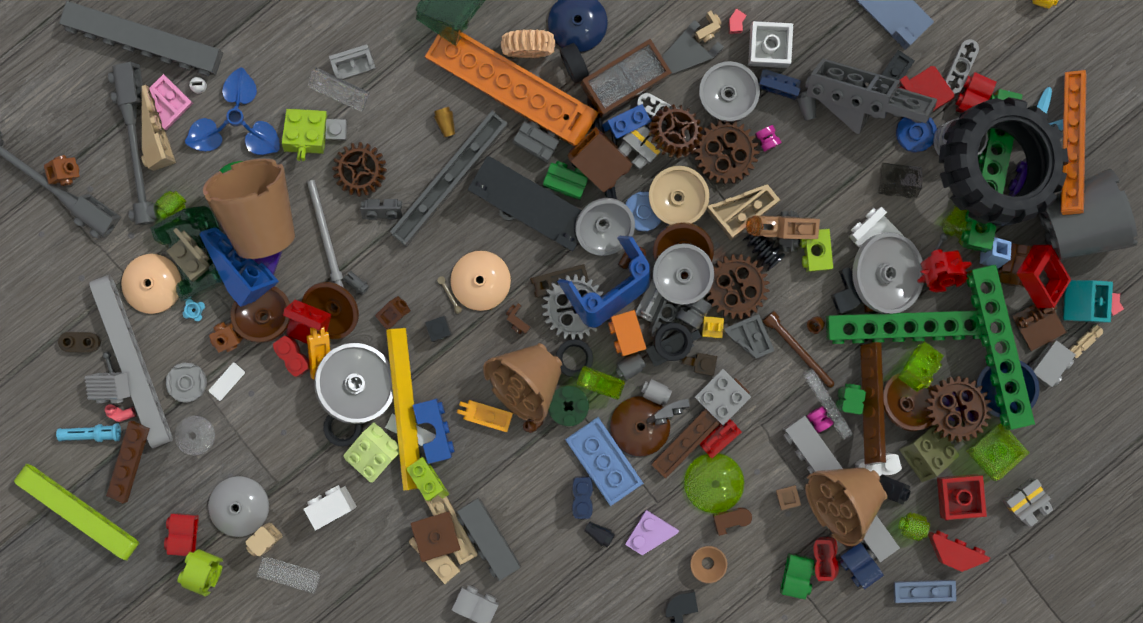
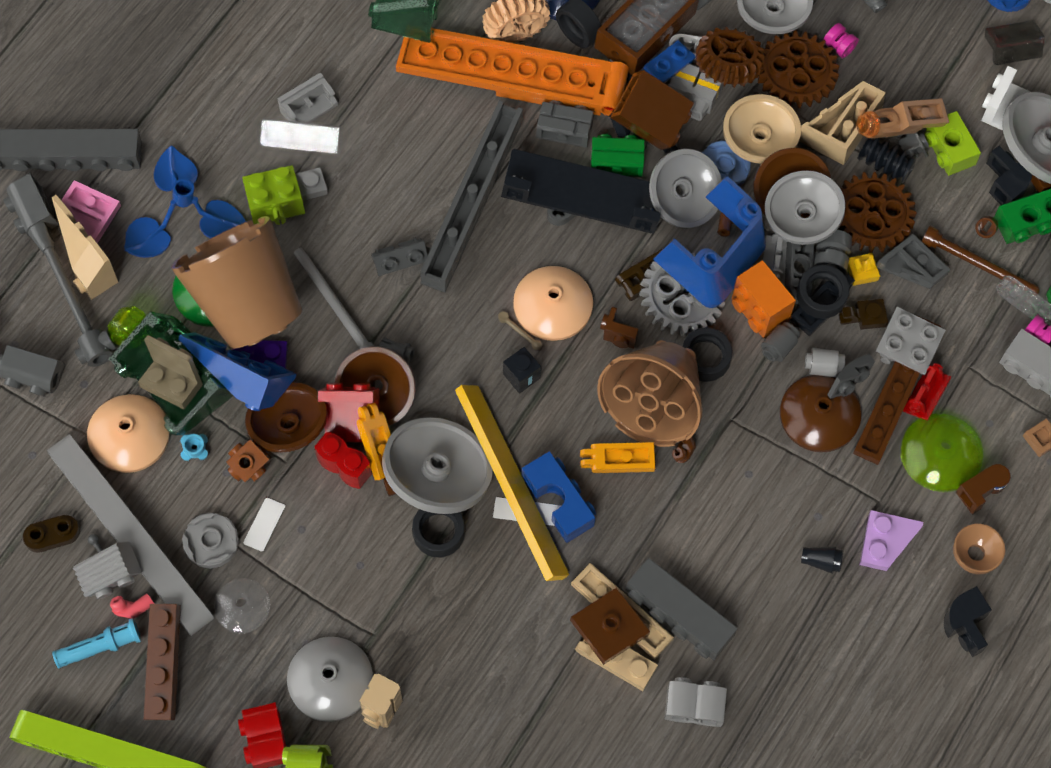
camera: 20 degrees left, 20 degrees down
(198, 88) = (119, 186): white hinge -> none
(289, 574) = (427, 746): clear plate -> none
(327, 509) = (456, 630): white brick -> none
(357, 177) = (337, 212): reddish brown gear -> none
(372, 452) = (487, 550): yellowish green bracket -> none
(392, 312) = (455, 370): reddish brown bracket -> none
(427, 480) = (575, 553): lime bracket -> none
(445, 121) = (444, 133): pearl gold cone -> none
(569, 417) = (736, 406): dark green brick -> none
(582, 502) = (780, 512): dark blue brick -> none
(600, 383) = (752, 366): clear neon green brick -> none
(604, 461) = (792, 469): medium blue tile -> none

